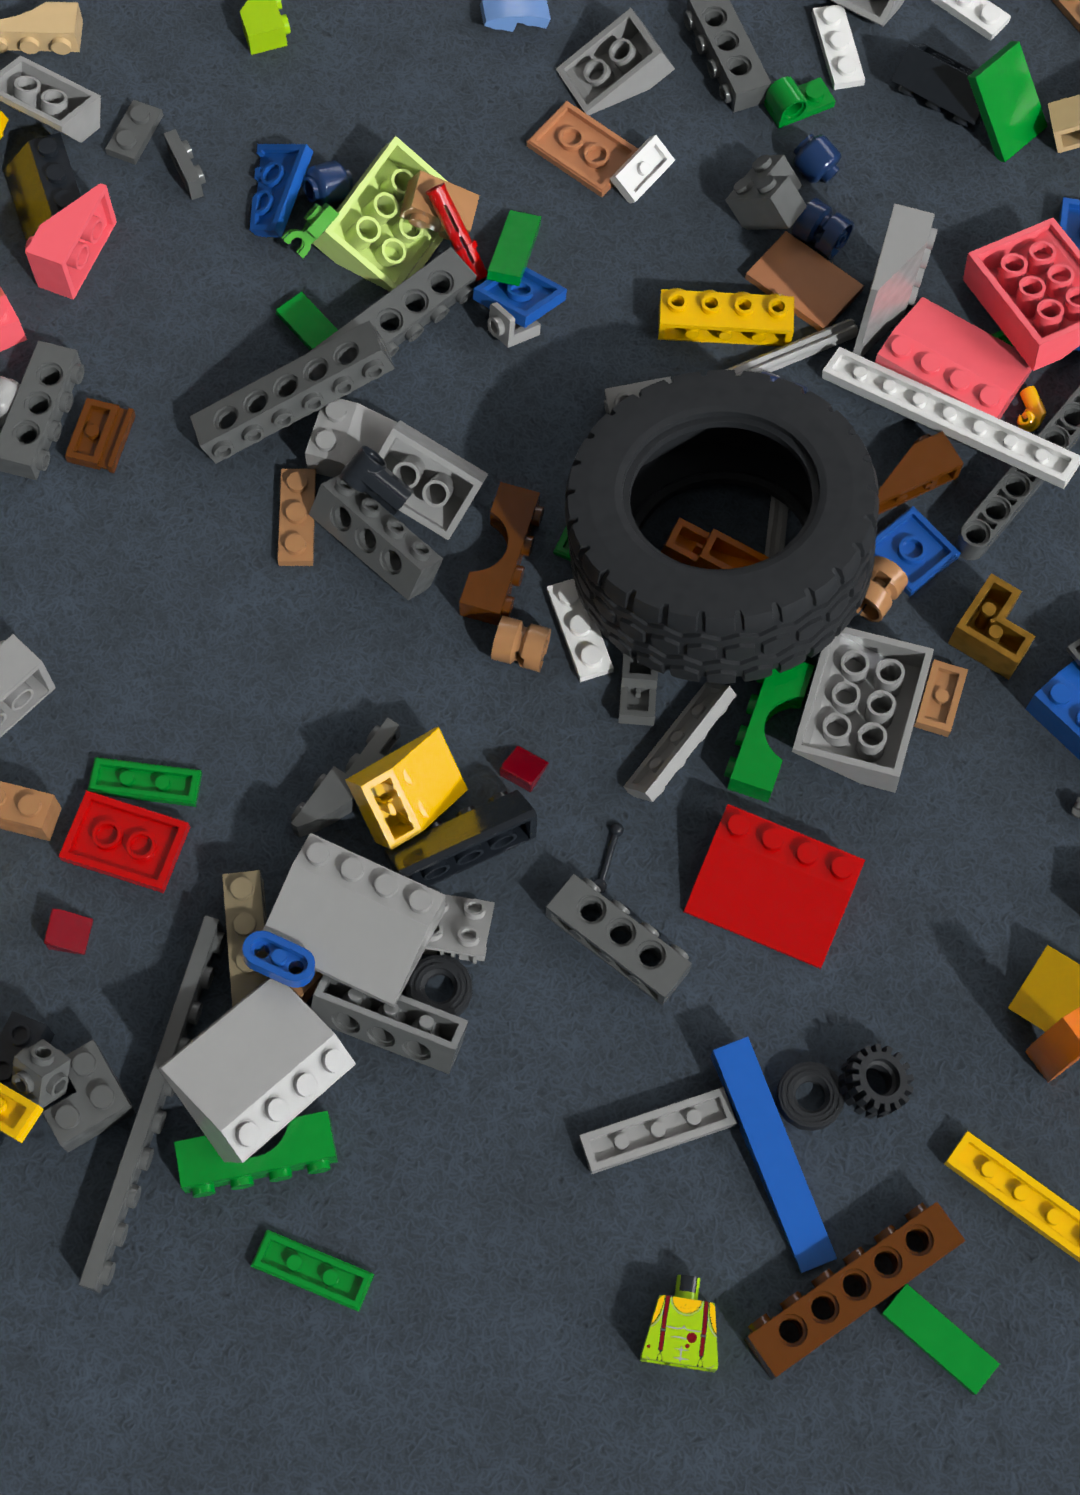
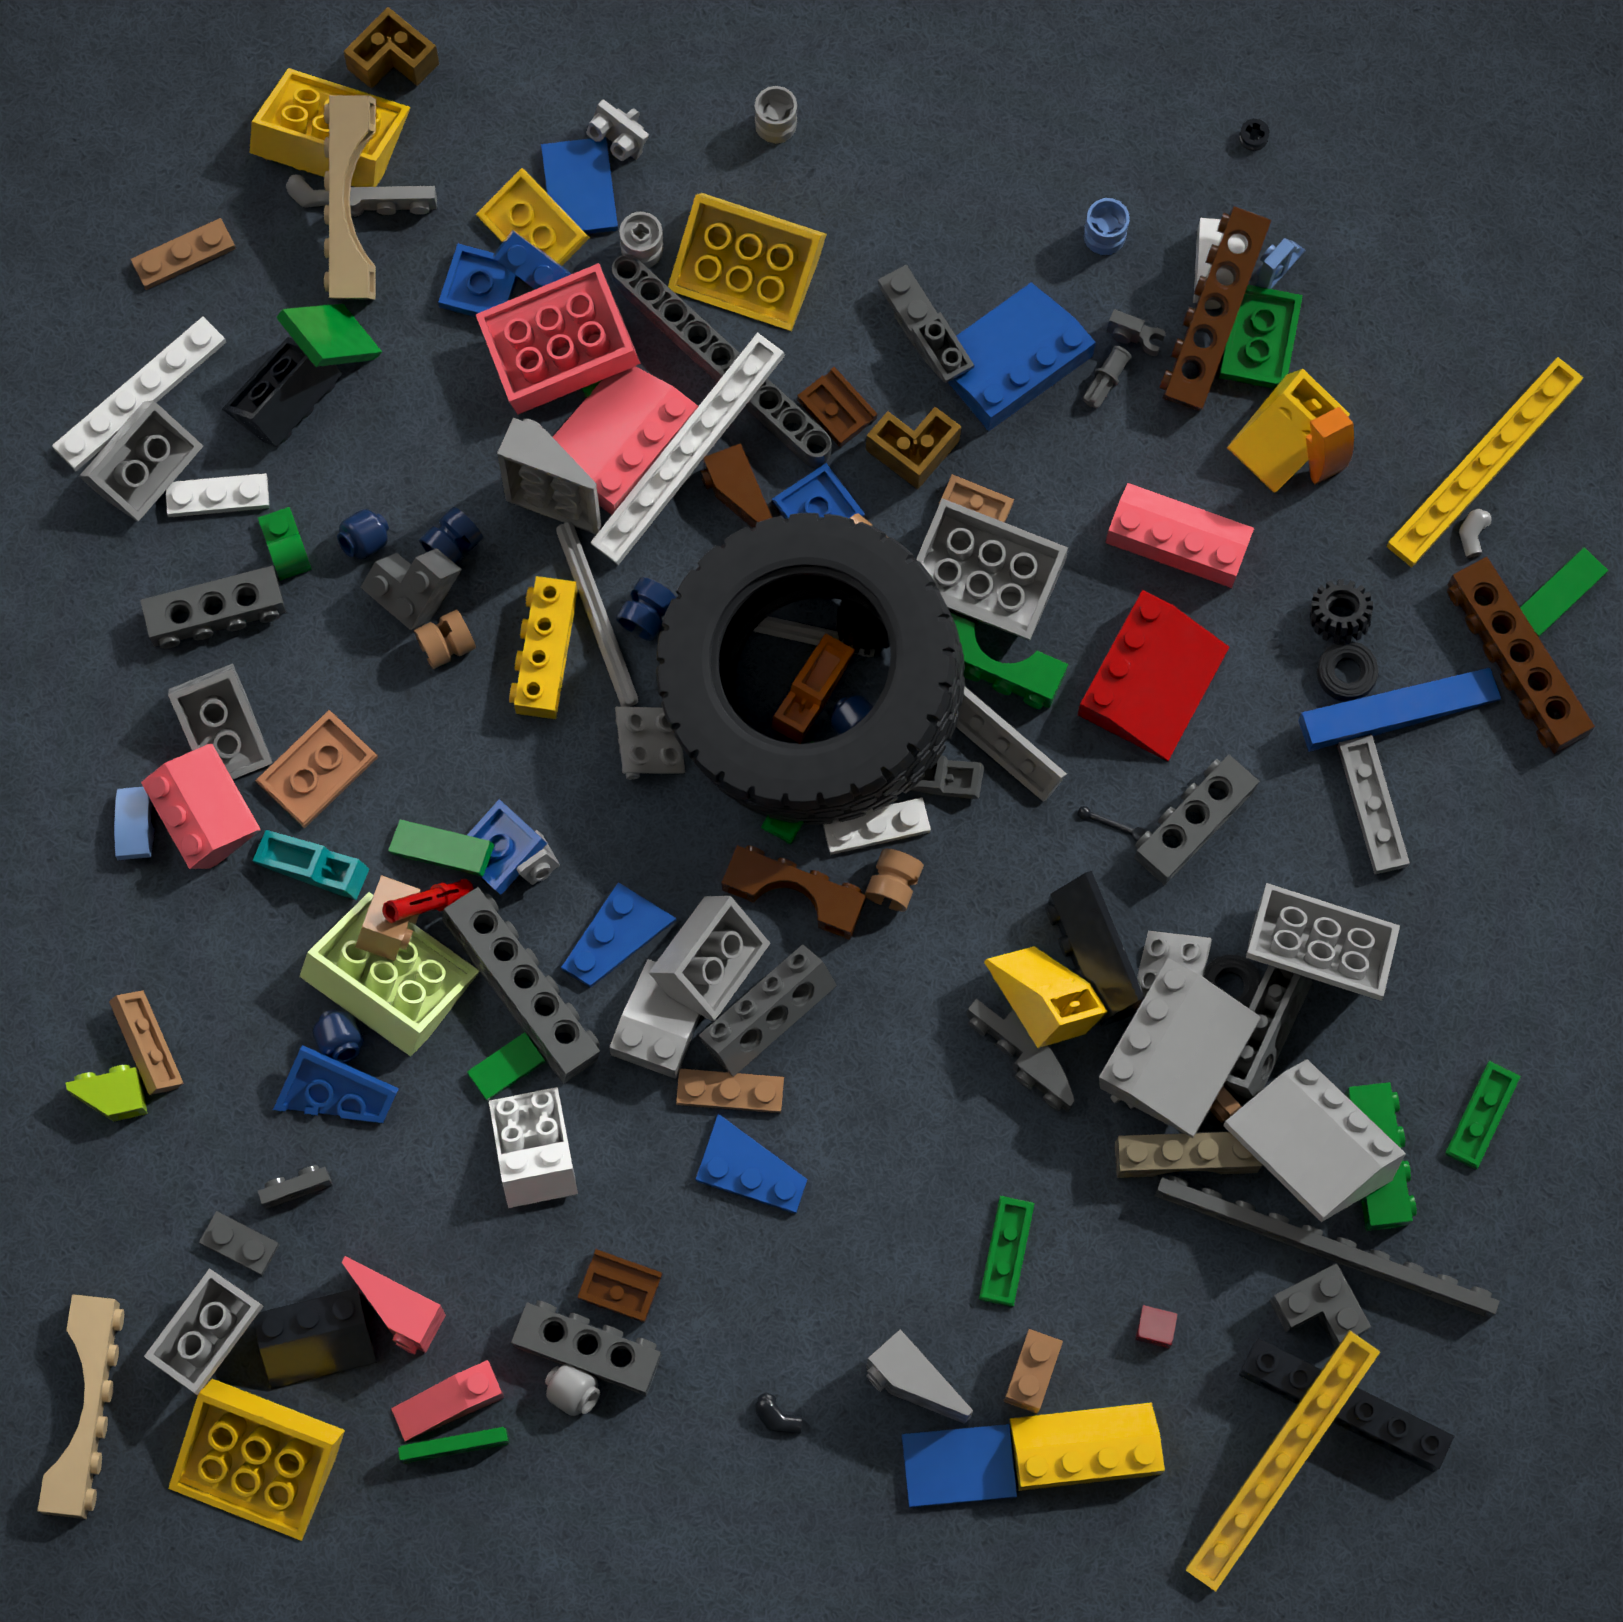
camera: 85 degrees left, 5 degrees up
(40, 1073) = (1310, 1338): dark grey brick -> none
(124, 841) = (1069, 1270): red plate -> none
(219, 538) = (748, 1169): none -> blue wing
(228, 349) = (532, 1147): none -> white slope
(281, 958) = (1215, 1115): blue plate -> none
(292, 392) = (625, 1165): dark grey brick -> none
(312, 41) = (146, 1042): none -> medium nougat plate
(318, 220) = (394, 1043): bright green plate -> none
(369, 474) = (714, 1001): black piece -> none
(448, 406) = (615, 934): none -> blue wing
(480, 1068) = (1323, 941): none -> light grey slope
(489, 151) = (311, 864): none -> teal slope
(523, 768) = (1018, 891): dark red slope -> none
(530, 51) = (201, 807): none -> coral slope
(642, 169) = (355, 710): white plate -> none
(683, 1329) = (1548, 801): lime torso -> none
(721, 231) = (445, 639): none -> medium nougat wheel
(817, 285) = (505, 567): nougat tile -> none
(941, 905) = (1179, 535): none -> coral slope
(1000, 1228) = (1471, 529): none -> light grey arm
(1024, 556) = (837, 407): none -> reddish brown plate
(1034, 412) = (678, 372): arm -> none

